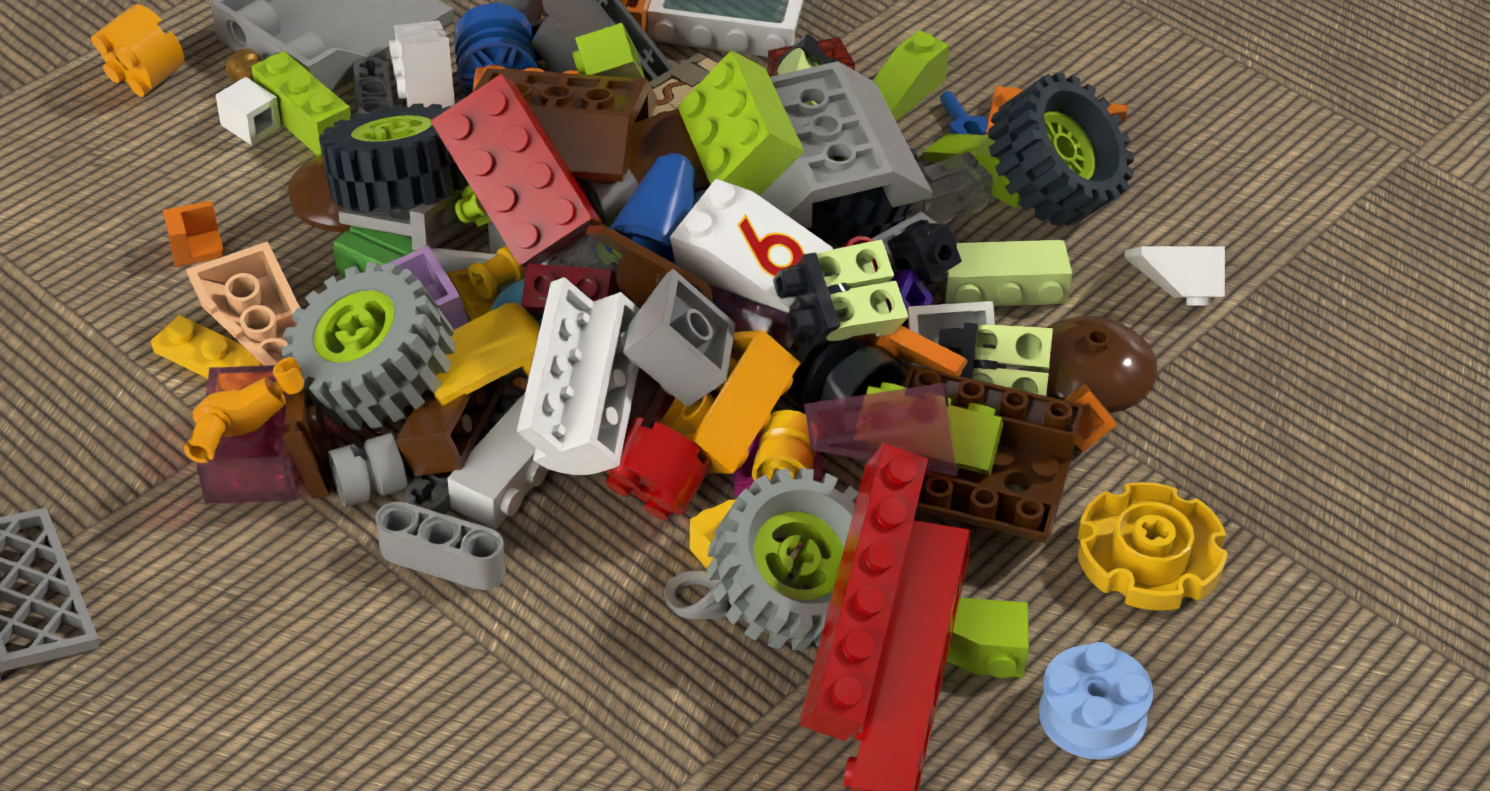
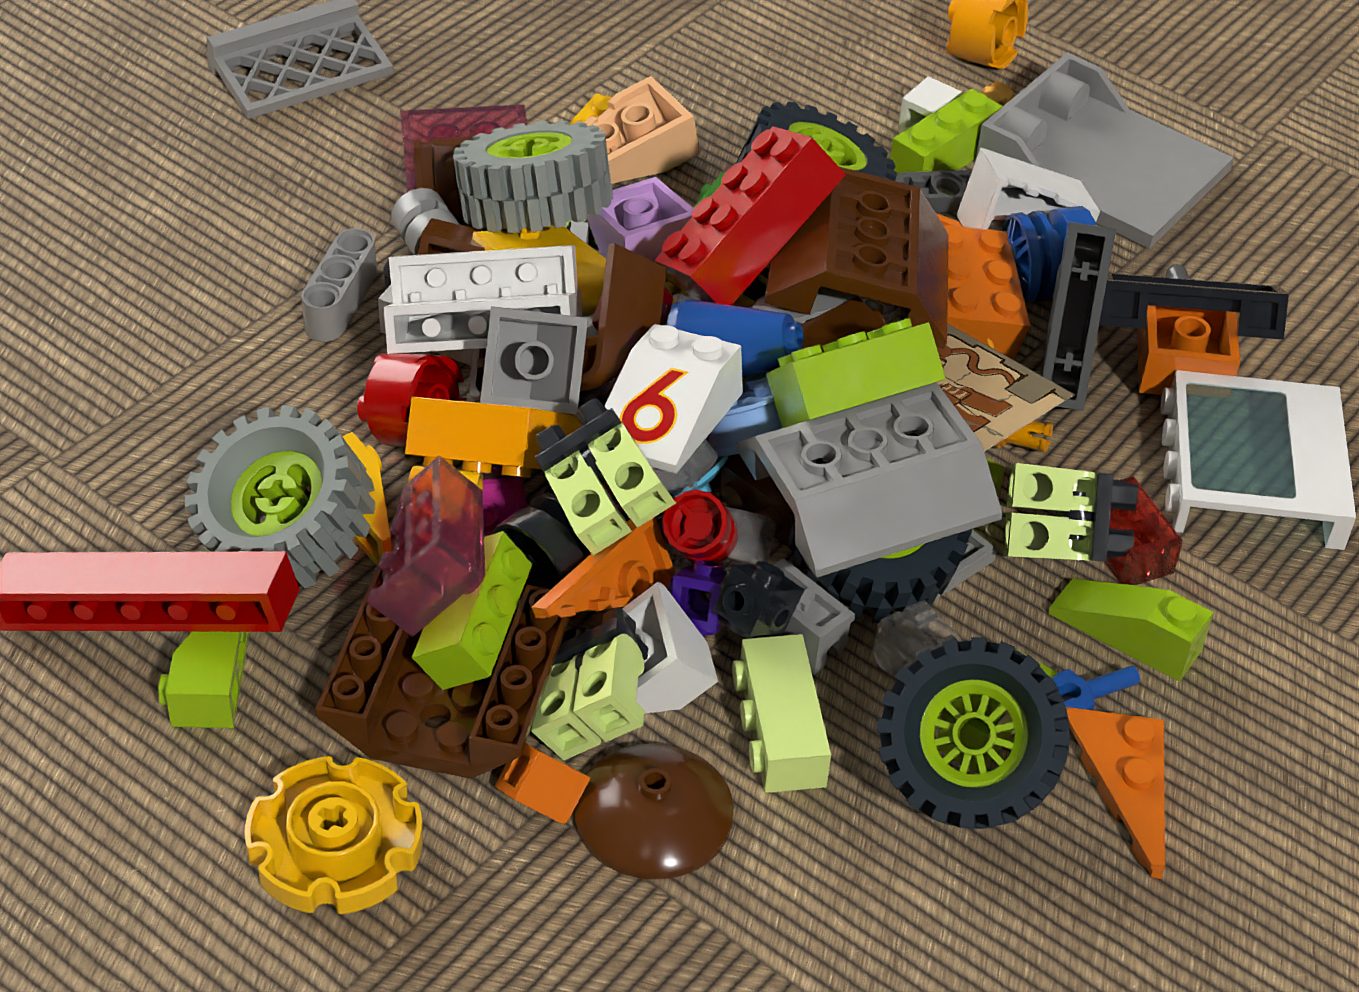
camera: 85 degrees right, 0 degrees up
(193, 233) = (738, 96): orange panel -> none
(241, 410) = (445, 104): light orange arm -> none
(608, 54) = (986, 295): lime brick -> none
(863, 593) = (297, 519): red brick -> none
(1095, 701) = (110, 767): light blue wheel -> none
(1183, 270) = (821, 894): white slope -> none

